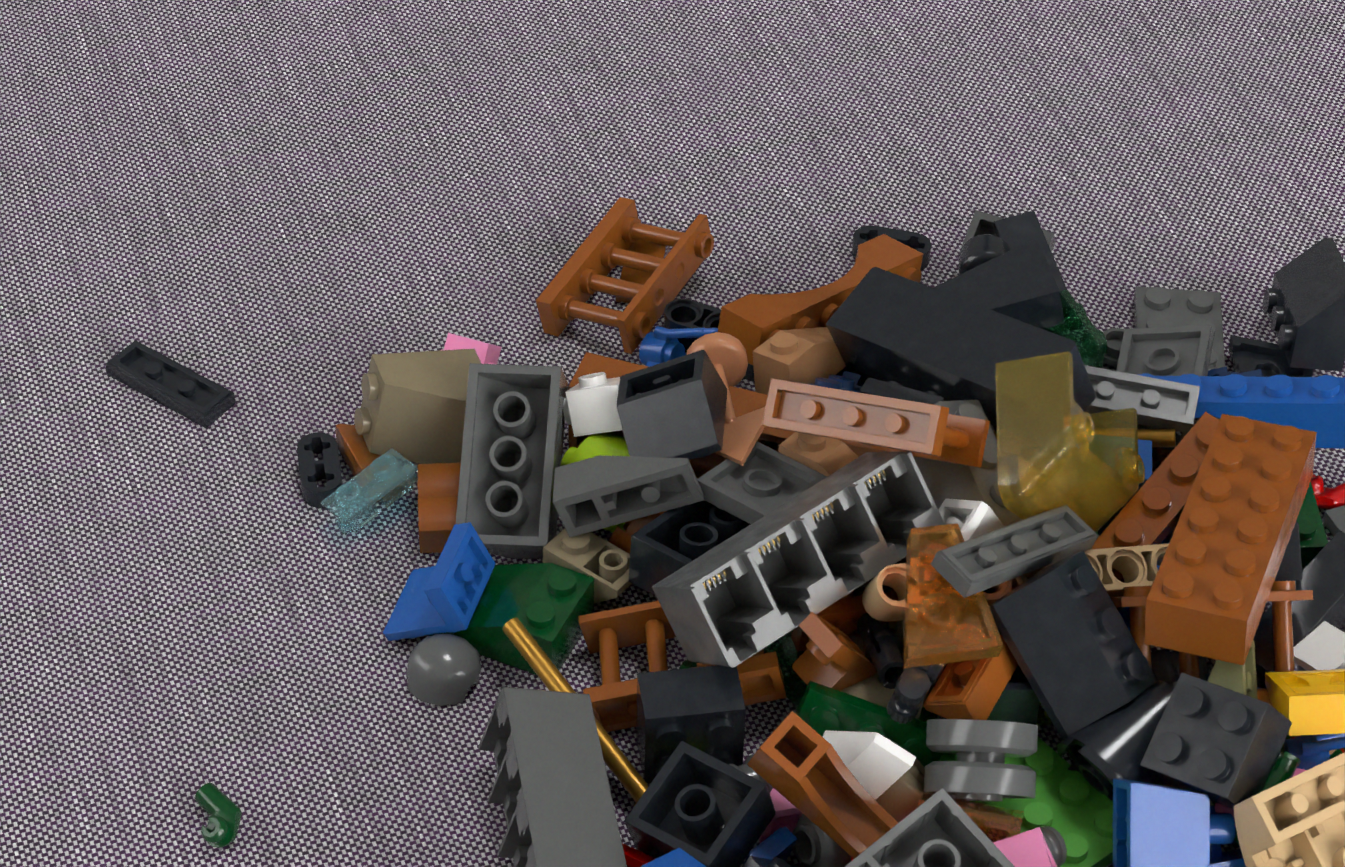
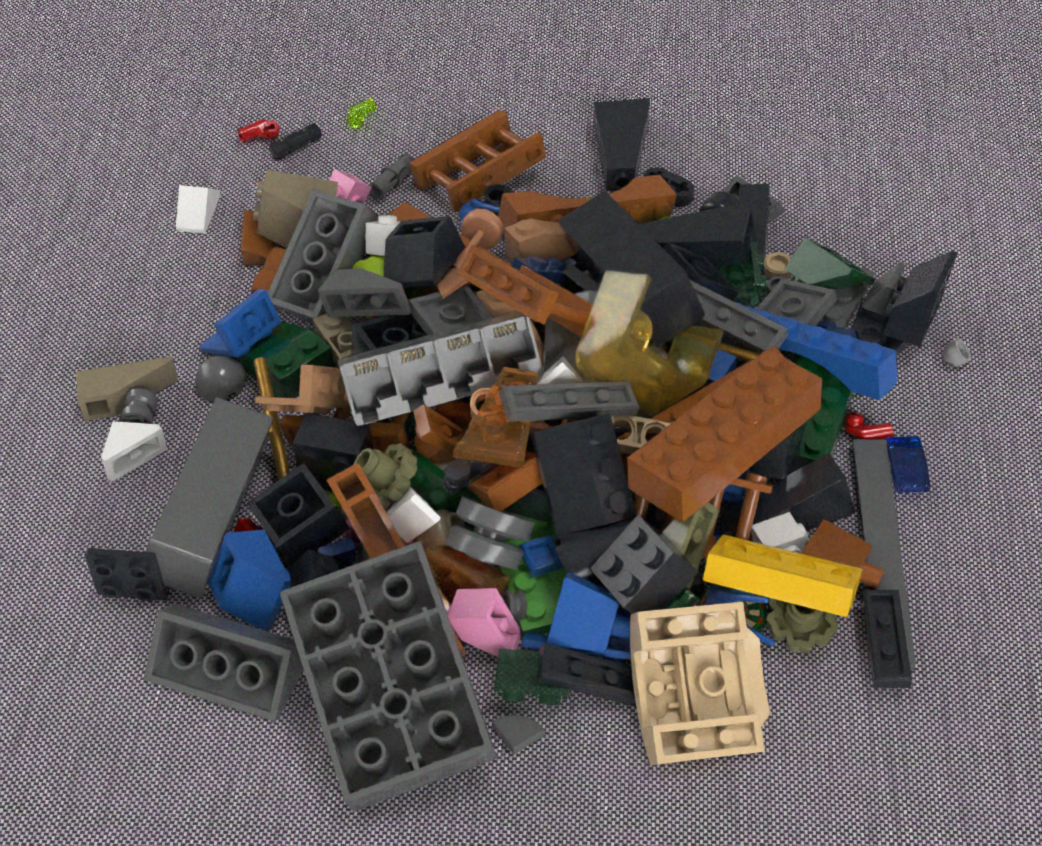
camera: 25 degrees right, 5 degrees up
(170, 384) = (172, 159): black tile -> none
(223, 818) = (42, 430): dark green arm -> none
(254, 444) = (195, 208): none -> white slope
(275, 307) = (261, 129): none -> red arm
(306, 723) = (104, 389): none -> dark tan slope
(313, 470) = (219, 234): black beam -> none
(337, 311) = (295, 140): none -> black axle
(358, 746) = (139, 406): none -> dark grey wheel
(379, 797) = (130, 447): none -> white slope
(383, 480) = (227, 260): clear light blue hinge -> none
(402, 250) = (357, 112): none -> clear neon green arm
(511, 324) = (391, 176): none -> dark grey pin
(641, 632) = (319, 392): none -> medium nougat bracket
(794, 202) = (621, 139): none -> black slope
(810, 700) = (388, 471): none -> olive plant
(1052, 770) = (541, 556): none -> blue tile
(1099, 312) = (775, 264): none -> tan tile
(1173, 301) = (824, 267): none -> slope
(1251, 310) = (883, 290): none -> dark grey slope

